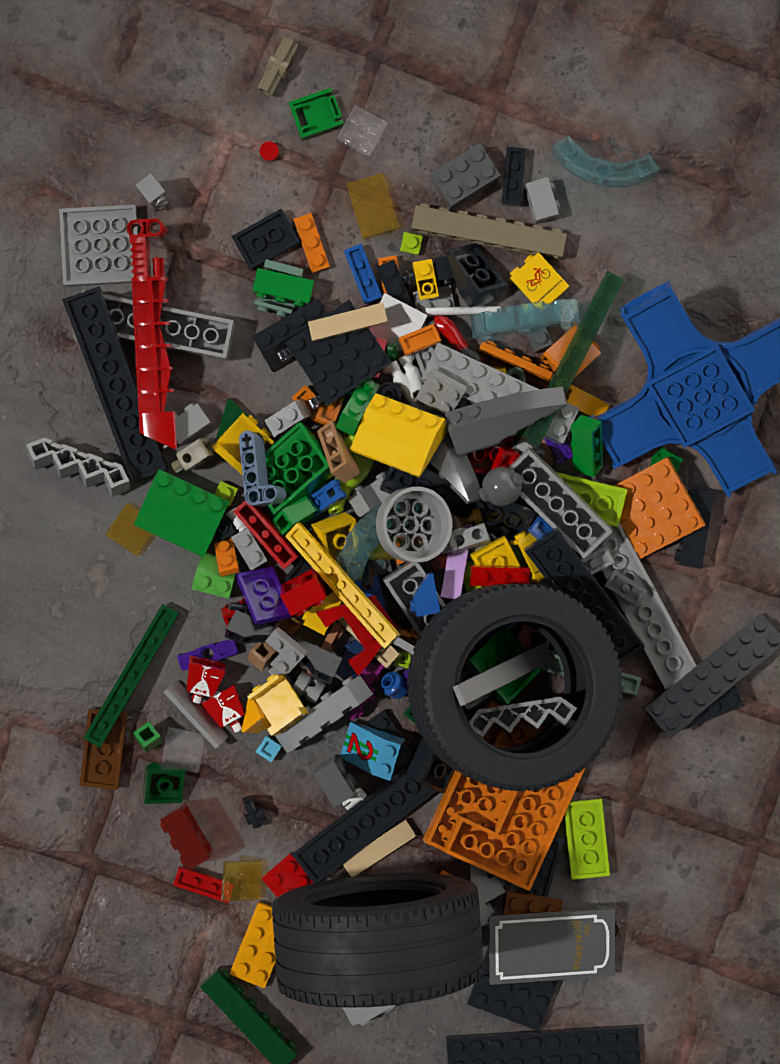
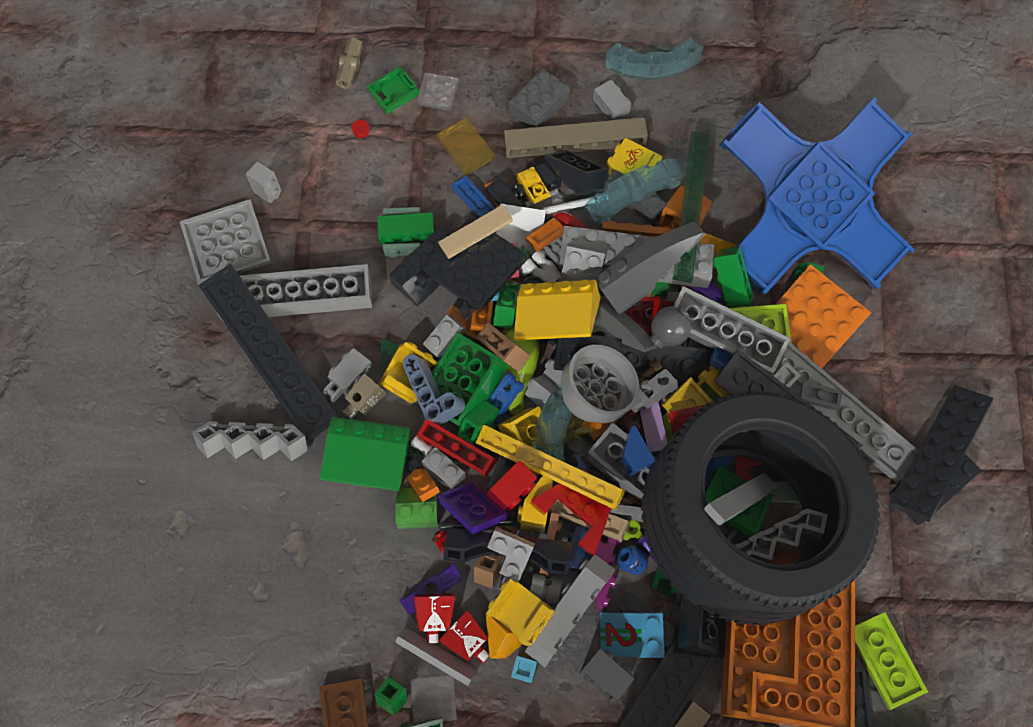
camera: 15 degrees left, 20 degrees down
(125, 533) = (316, 492): clear yellow tile -> none
(131, 675) = (355, 637): dark green plate -> none
(152, 360) = (295, 309): red piece -> none
(226, 492) = (404, 421): lime plate -> none
(265, 239) = (378, 193): black plate -> none
(311, 243) = (420, 189): orange plate -> none
(358, 796) = (632, 693): white pin -> none
(411, 243) = (510, 166): lime plate -> none
(513, 176) = (580, 91): black plate -> none
(693, 545) = (864, 341): black brick -> none

